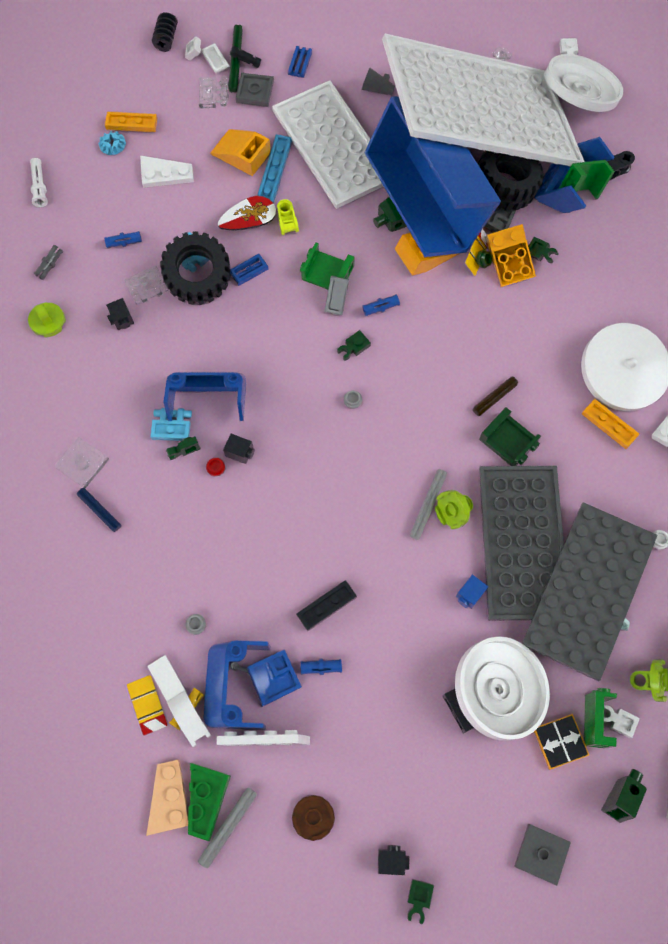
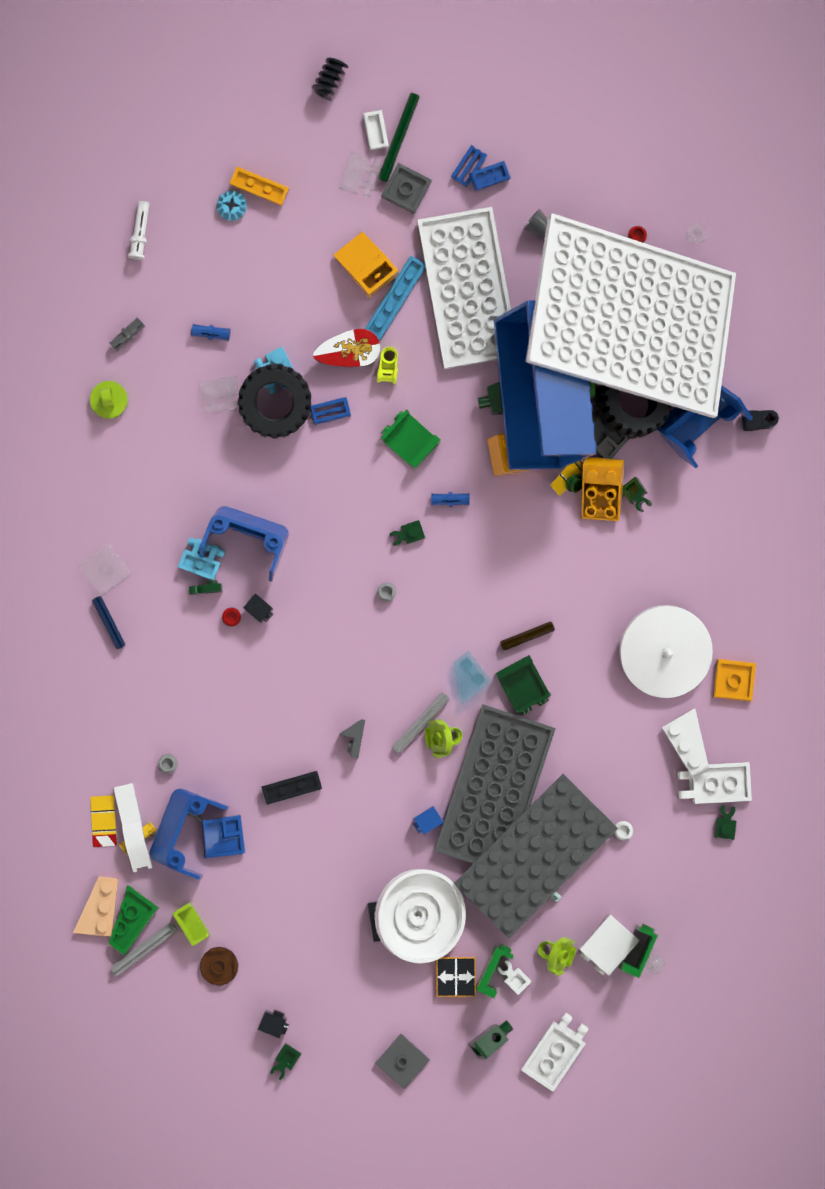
camera: 15 degrees right, 15 degrees up
(119, 314) = (183, 422): black brick -> none
(164, 172) = (277, 262): white wing -> none
(193, 48) = (354, 110): white plate -> none
(245, 56) = (409, 143): black axle -> none
(268, 738) = (202, 888): white wing -> none
(269, 781) = (191, 924): none -> lime panel
(319, 61) = (489, 176): none -> blue plate
(321, 666) = (268, 840): blue pin -> none
(336, 295) = (408, 476): tile -> none
(370, 532) = (356, 732): none -> dark grey slope
(457, 447) = (469, 676): none -> clear light blue wing
(568, 46) = (774, 250): white plate -> none
(584, 82) = (764, 309): white container -> none
(588, 176) = (729, 433): green panel -> none
(610, 424) = (626, 703): light orange plate -> none

